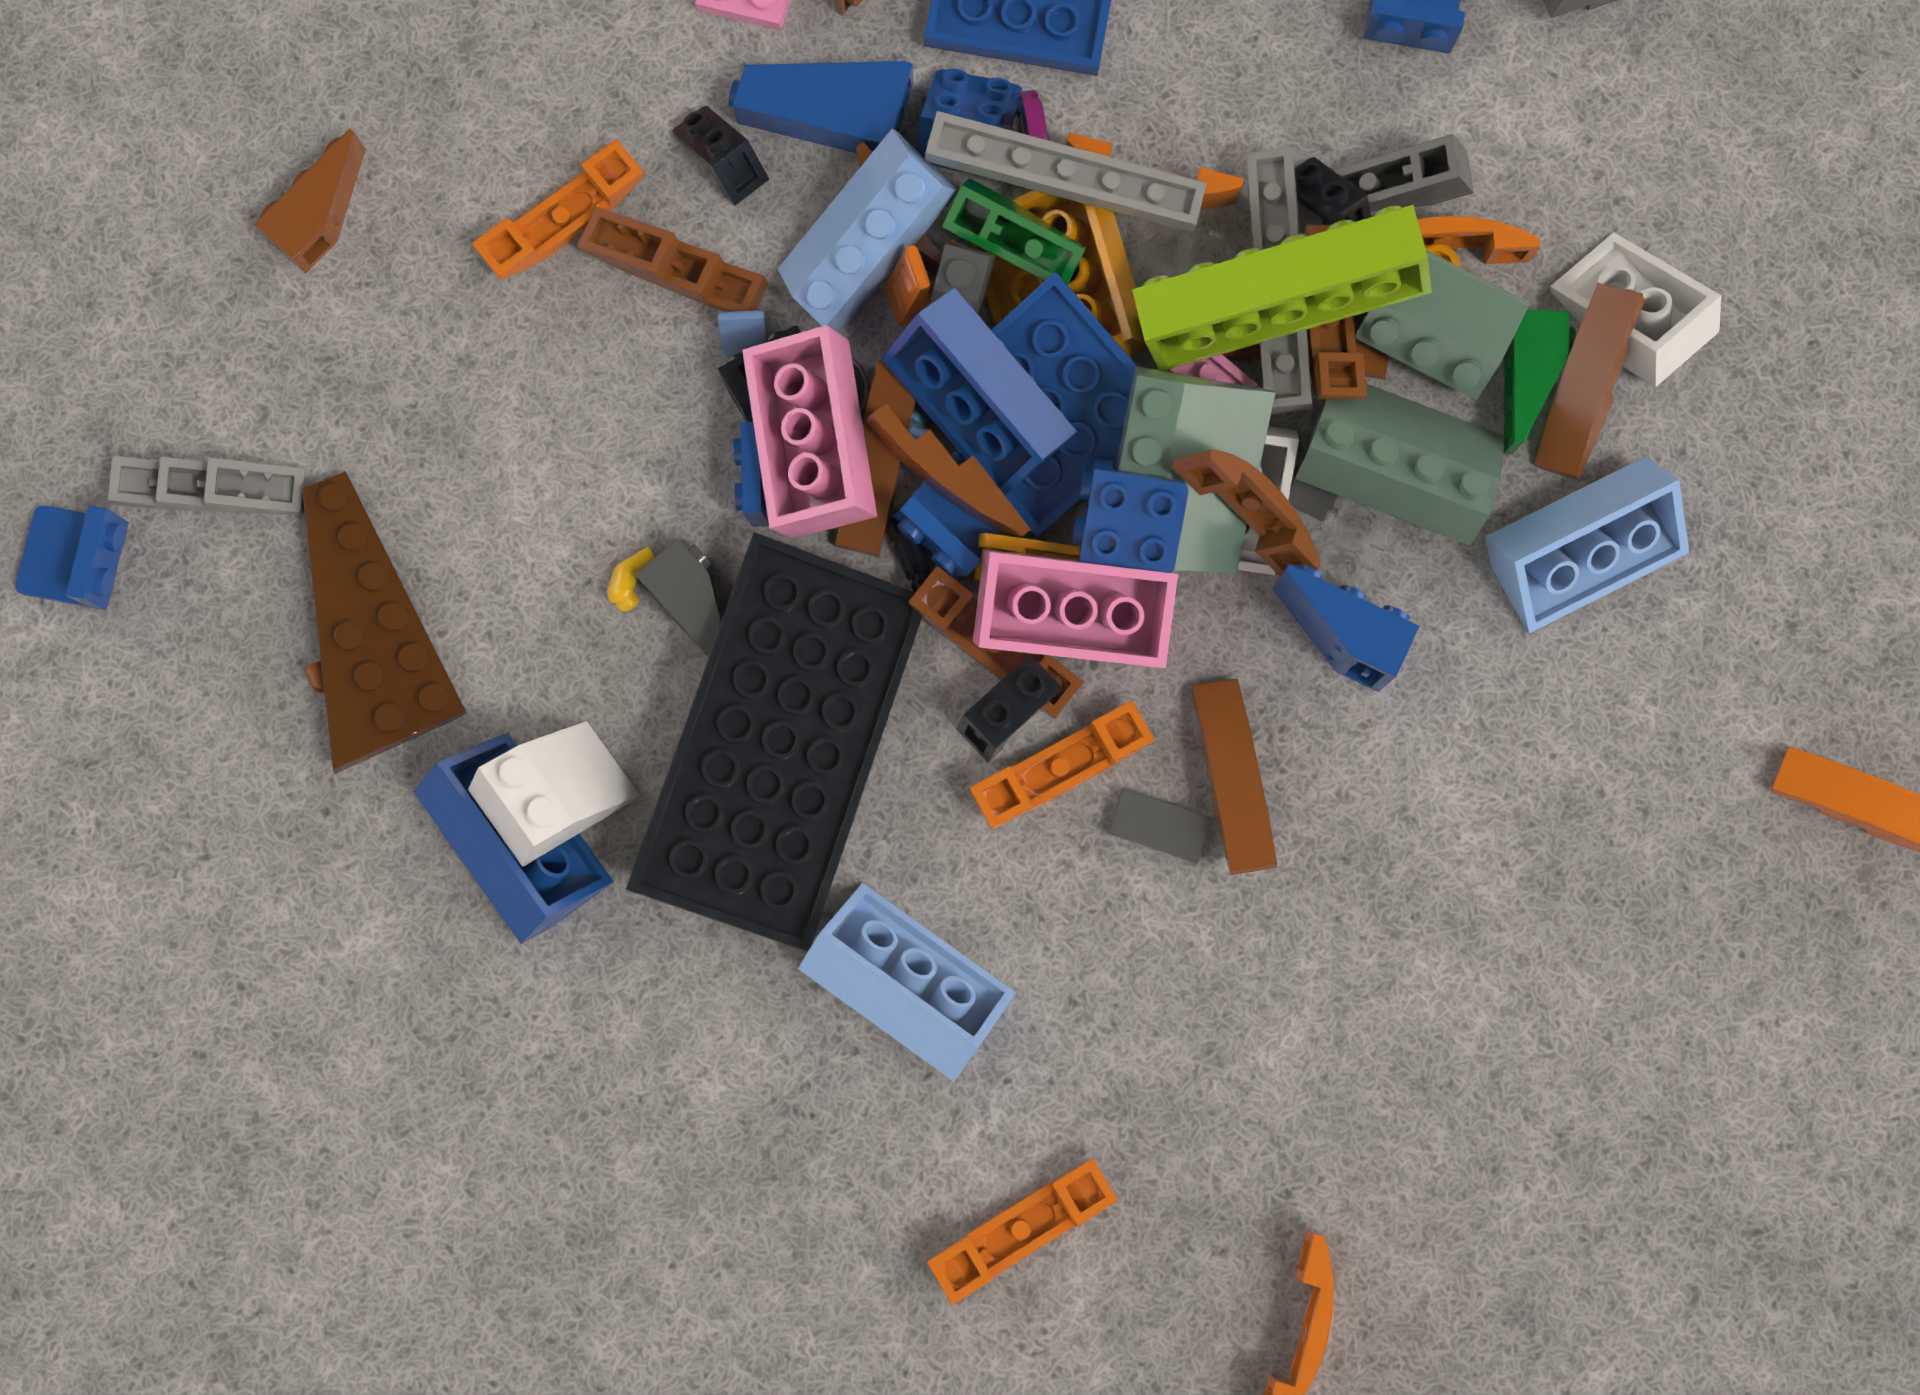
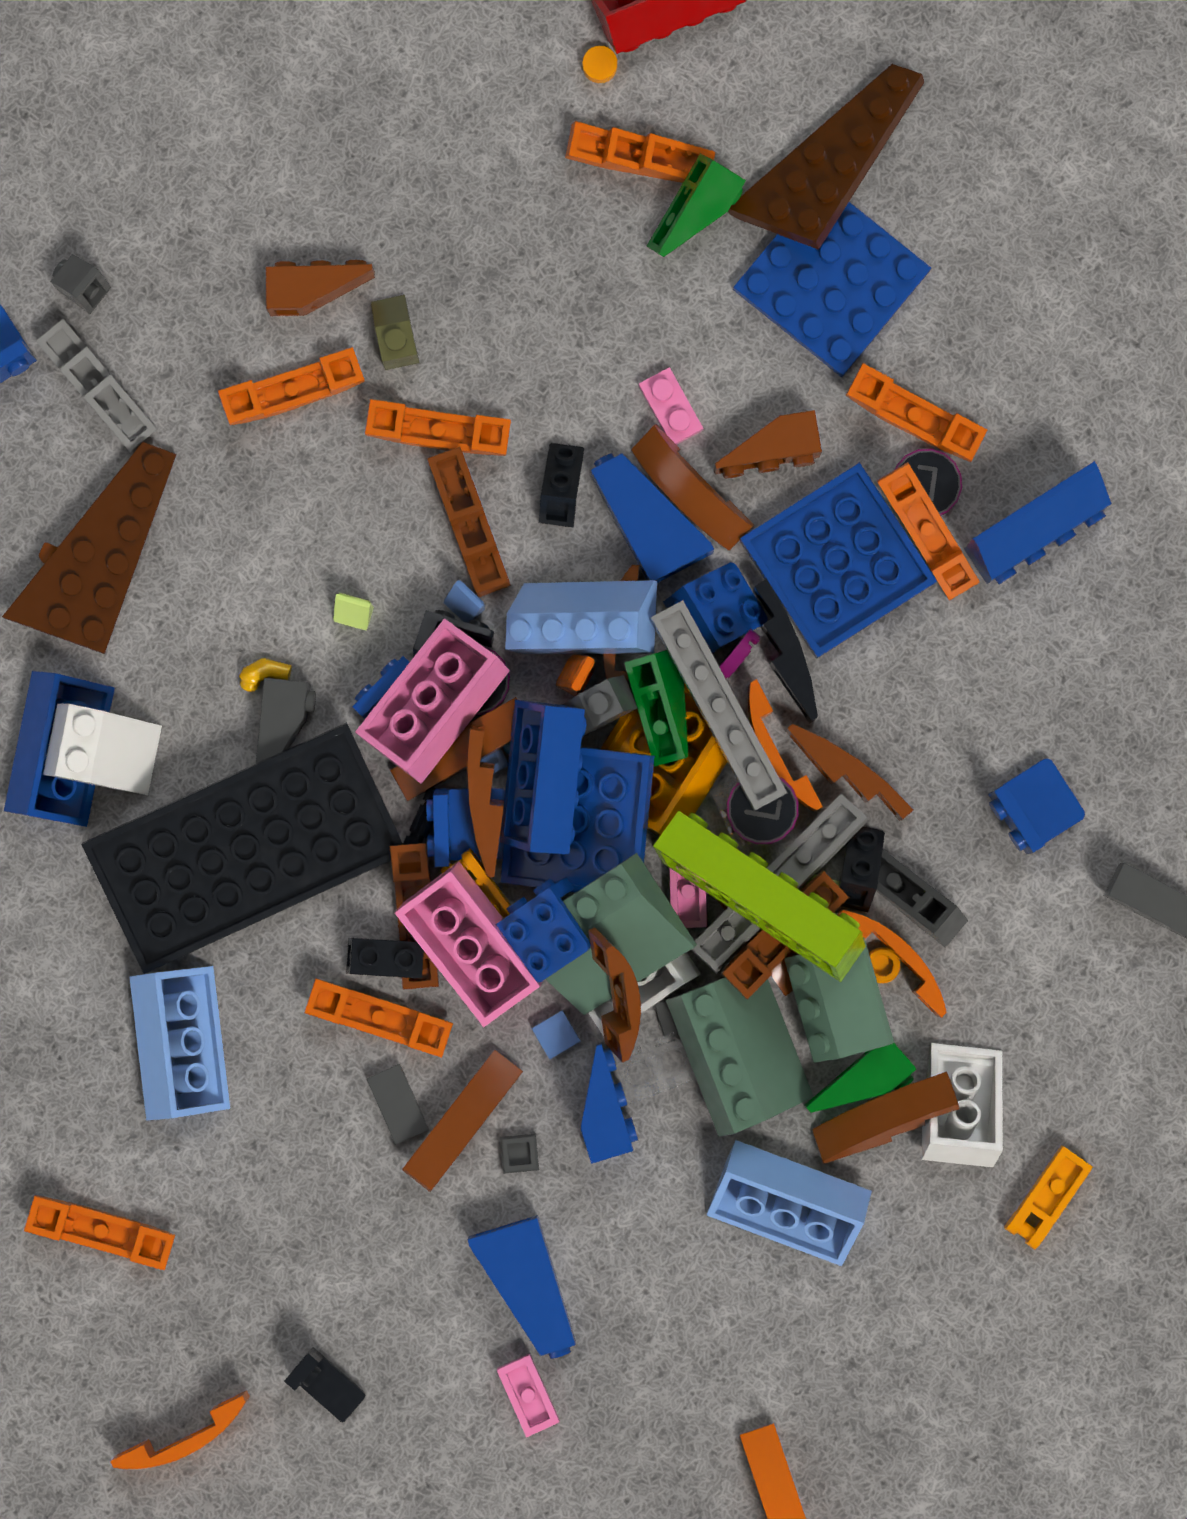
camera: 50 degrees right, 5 degrees up
(96, 407) = (80, 283): none -> dark grey slope
(394, 310) = (291, 389): none -> orange slope
(435, 172) = (394, 332): none -> olive slope
(651, 441) = (352, 611): none -> yellowish green slope
(835, 40) = (689, 490): none -> dark orange slope
(1085, 96) = (791, 664): none -> black slope
(1212, 136) = (836, 762): none -> dark orange slope
(1213, 239) = (765, 824): none -> black tile
(1230, 617) = (556, 1034): none -> medium blue tile
(1313, 753) = (519, 1153): none -> dark grey tile
(1374, 1143) = (326, 1385): none -> black bracket
(1442, 852) = (526, 1279): none -> blue slope
(1557, 954) = (528, 1395): none -> bright pink plate
(1791, 307) = (1049, 1196): none -> light orange plate

